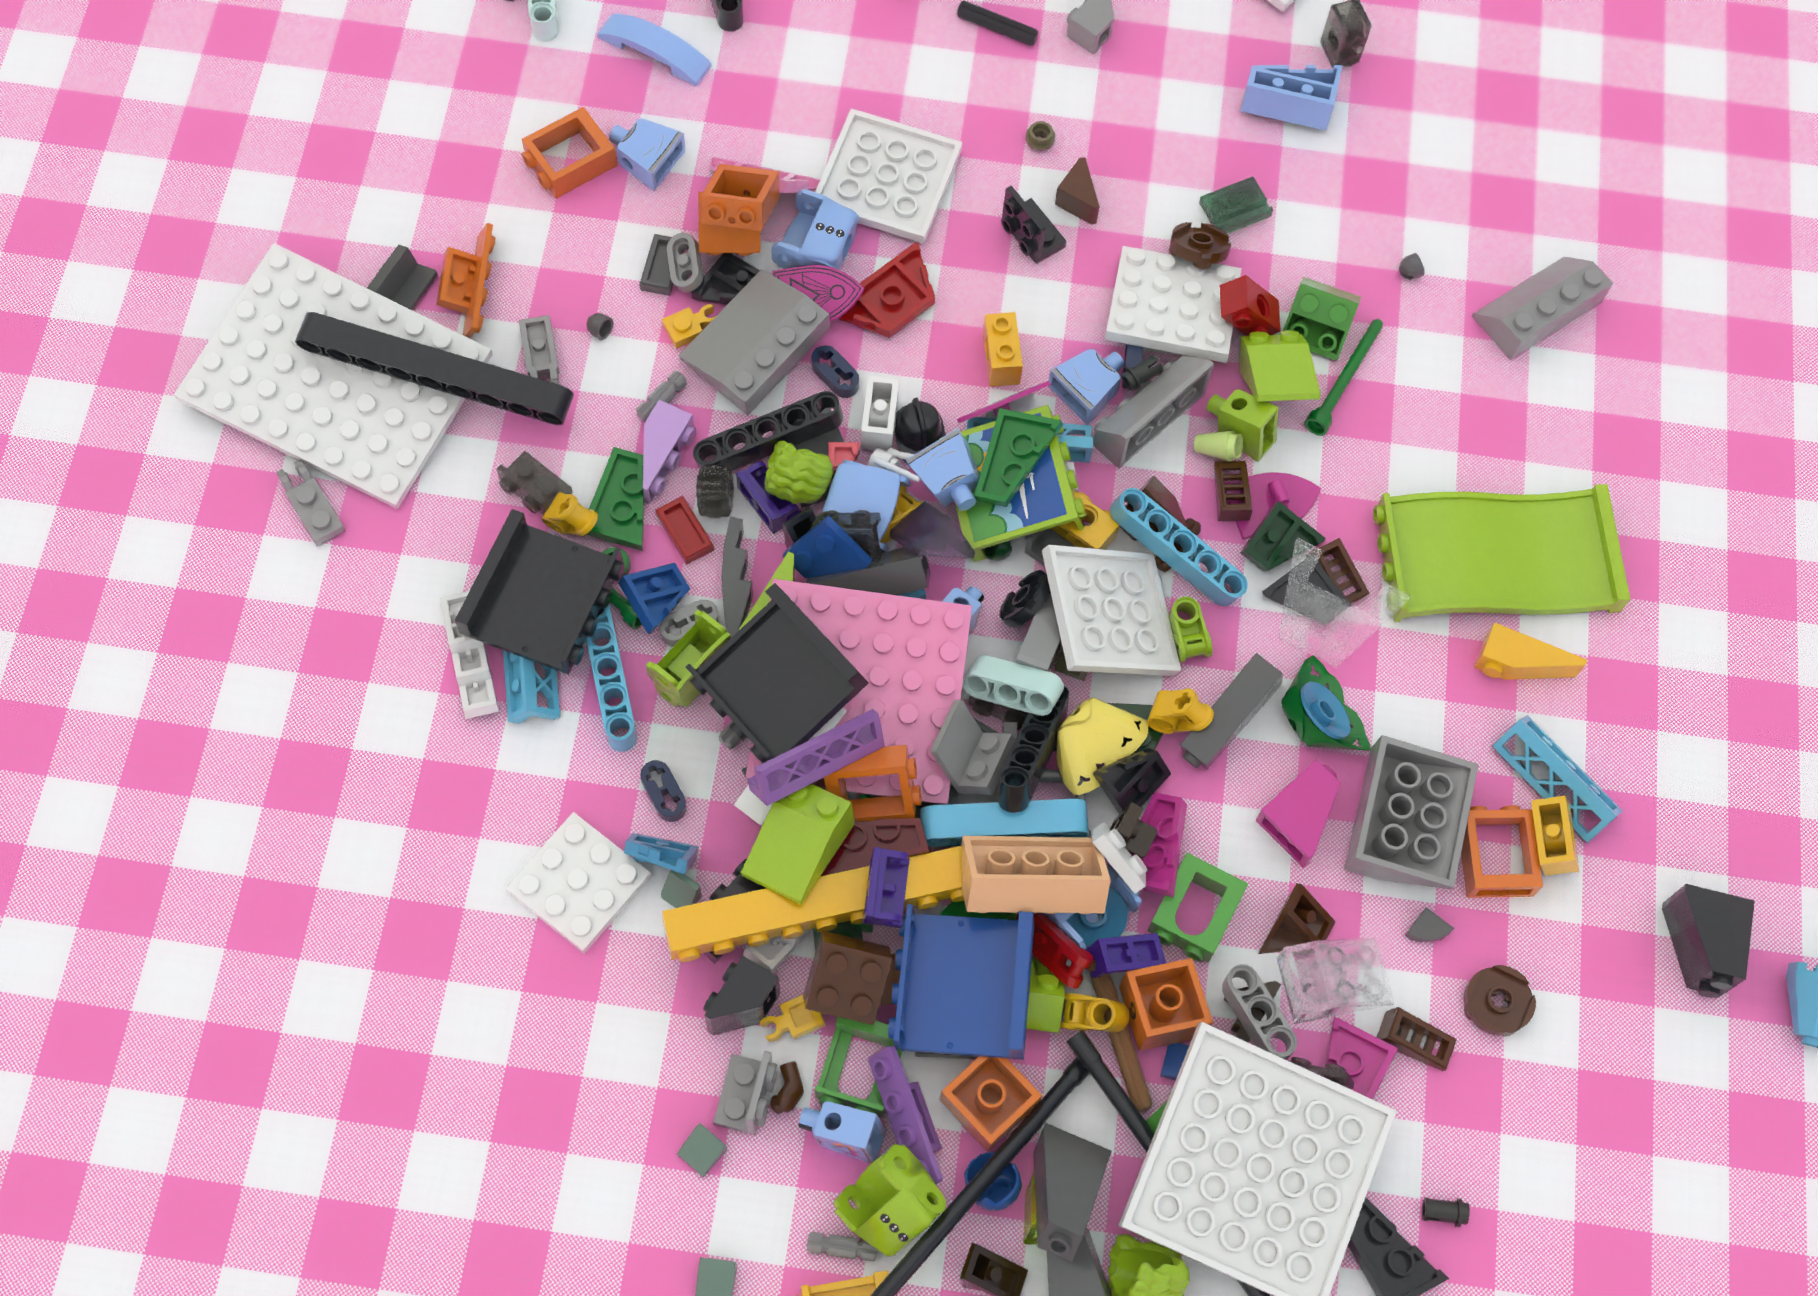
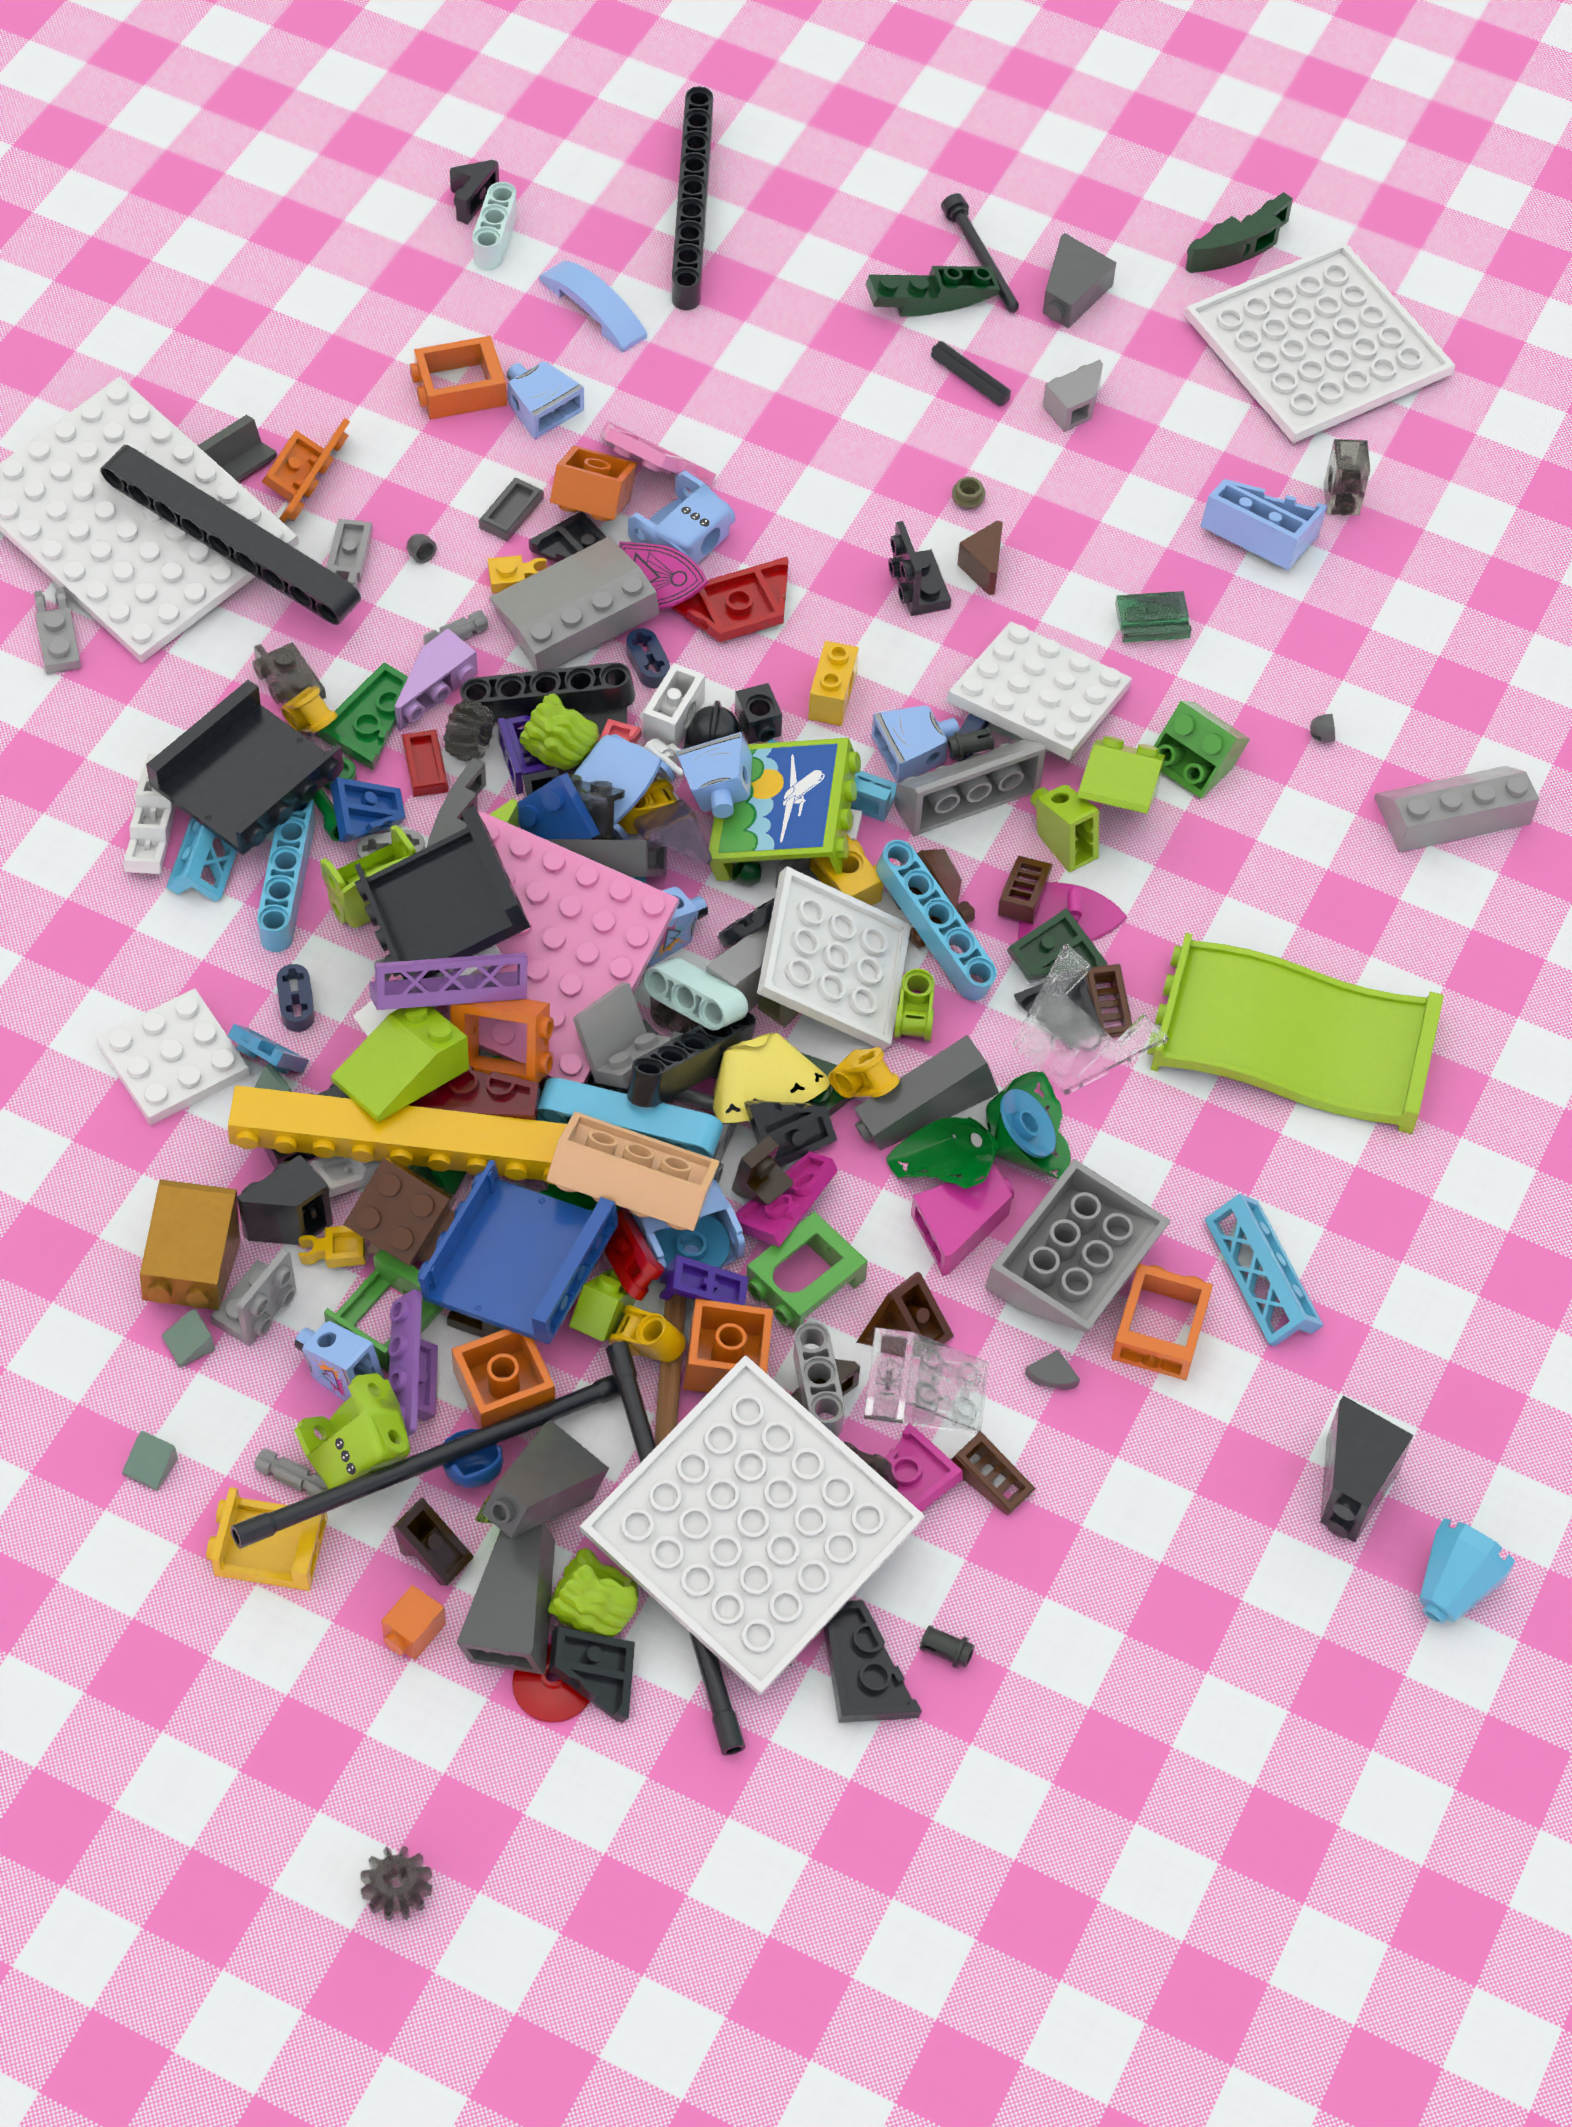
camera: 20 degrees right, 10 degrees down
(674, 1069) = (190, 1245): none -> pearl gold slope
(684, 265) = (532, 509): light grey plate -> none
(728, 197) = (611, 452): orange window -> none
(790, 1092) = (303, 1313): reddish brown arm -> none
(886, 888) = (472, 1133): dark purple hinge -> none
(890, 174) = (789, 486): white plate -> none
(950, 385) = (758, 713): none -> black brick
(1004, 403) = (810, 730): dark pink shield -> none
(1012, 454) = (789, 773): green wing -> none
(1113, 848) = (729, 1173): white plate -> none
(1200, 245) = (1093, 641): reddish brown plate -> none
(1221, 445) = (1032, 840): yellowish green cone -> none
(1249, 306) = (1117, 710): red brick -> none
(1272, 760) = (942, 1155): none -> green piece
(1320, 419) = (1153, 847): green piece -> none
(1483, 1012) = (1094, 1485): reddish brown plate -> none
(1518, 656) = (1275, 1141): yellow slope -> none
(1555, 835) = (1229, 1319): yellow brick -> none

